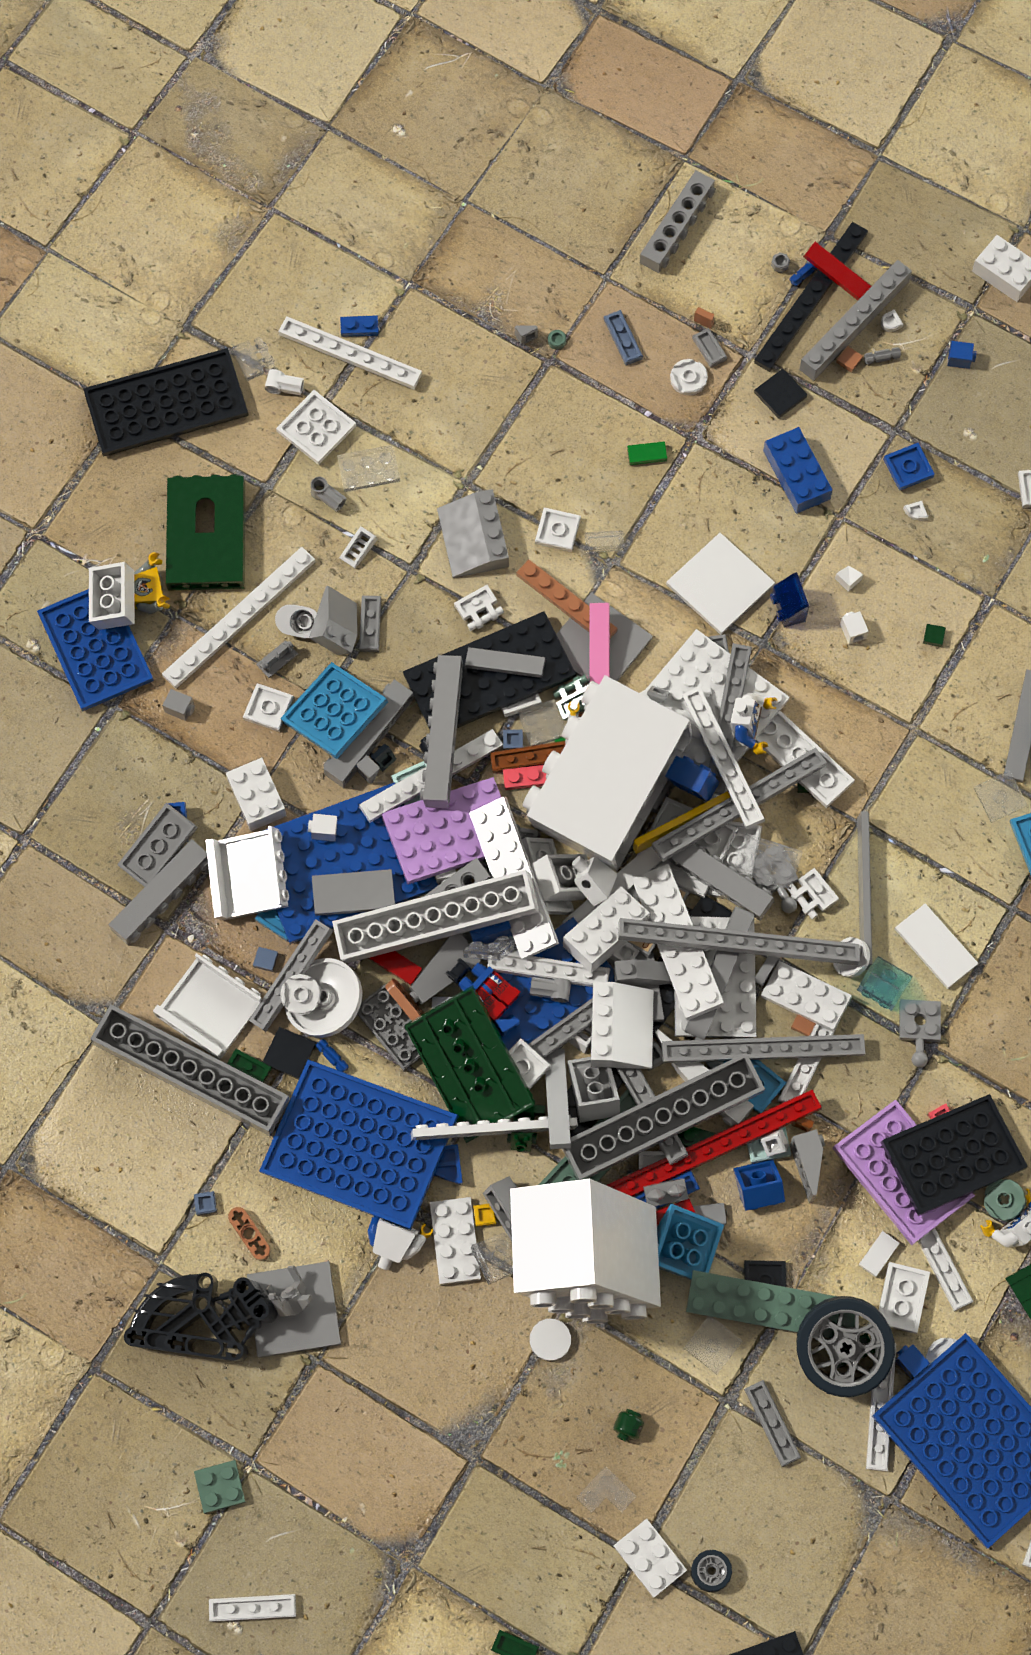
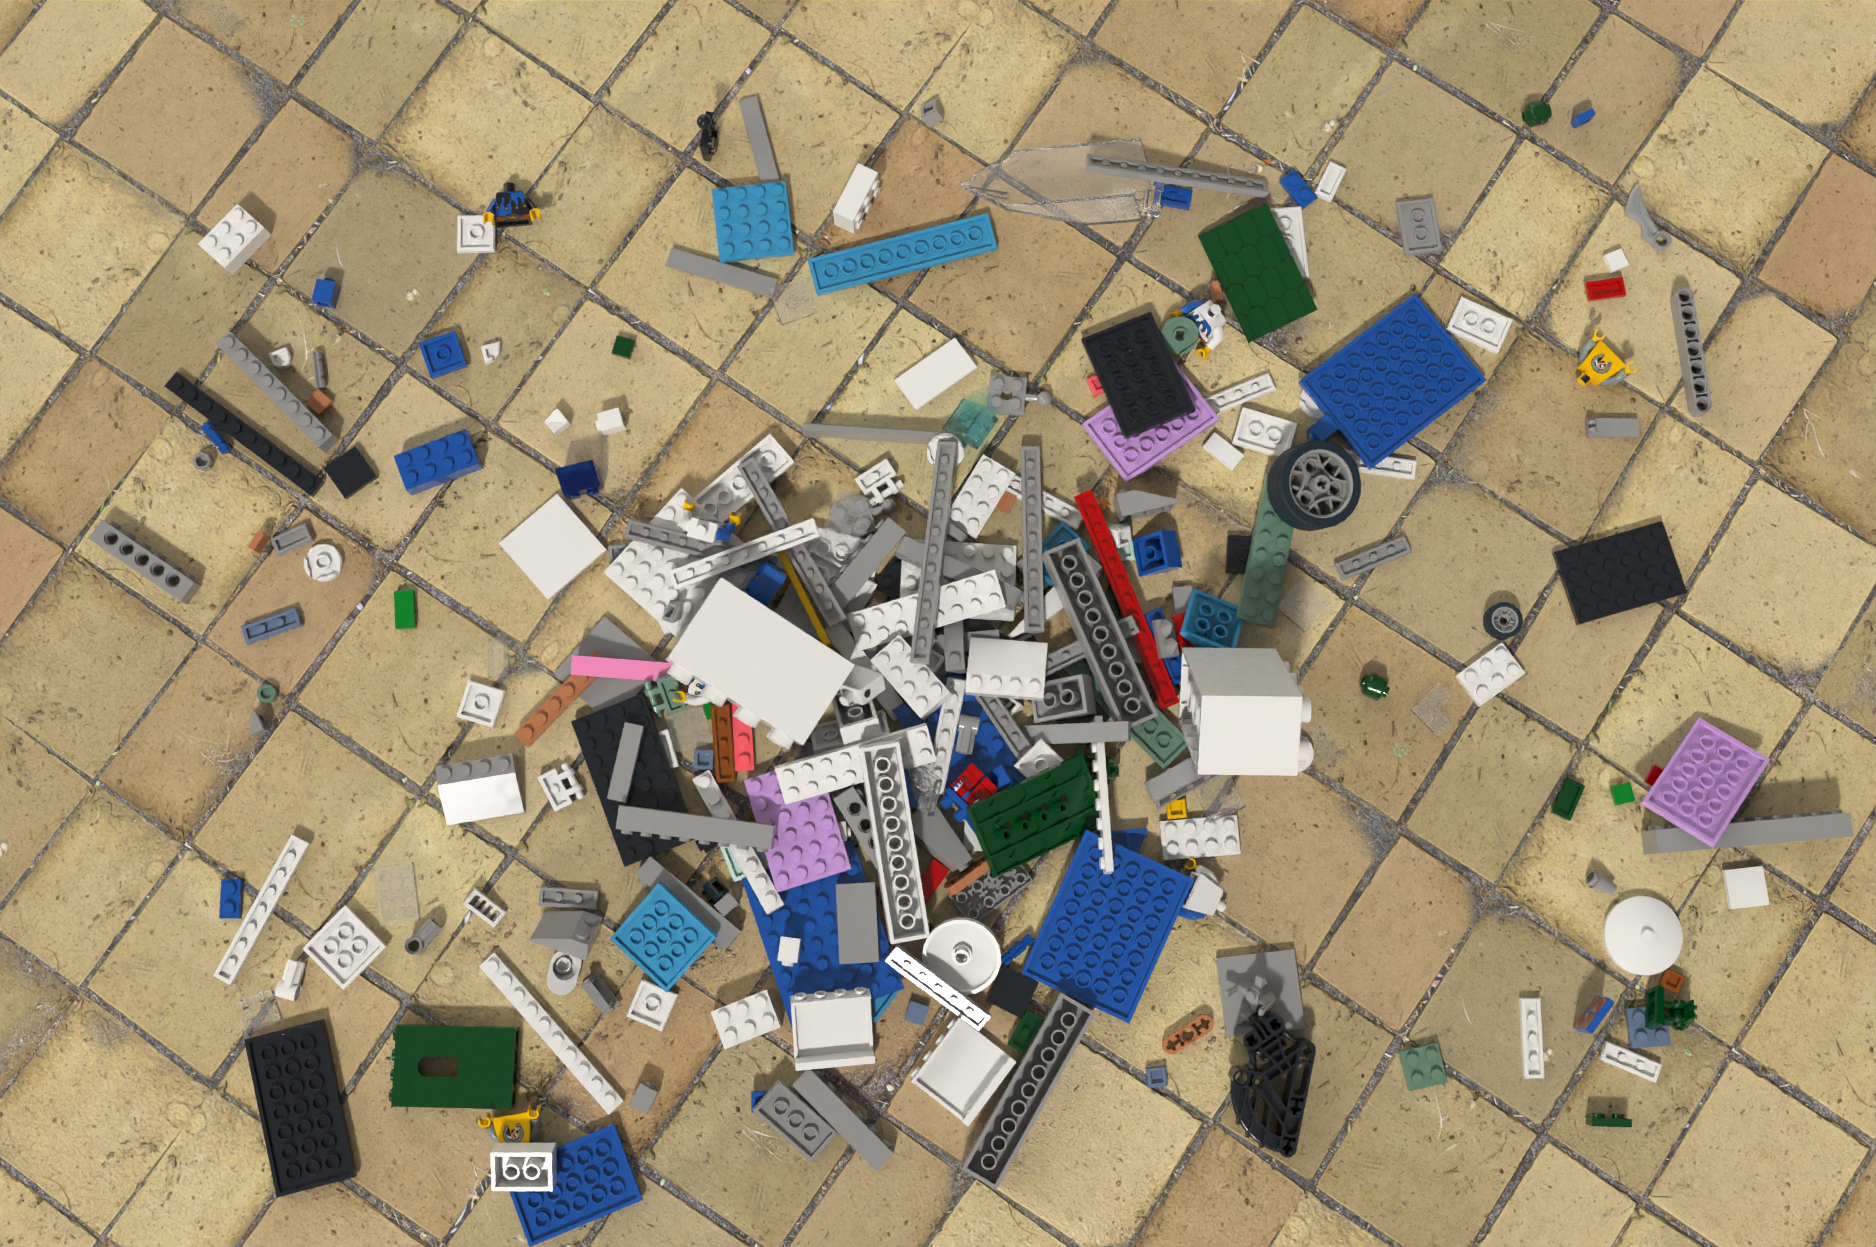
camera: 90 degrees left, 10 degrees up
(300, 994) = (959, 978): white tile -> none
(458, 971) = (945, 822): black bush -> none
(836, 271) = (221, 404): red tile -> none

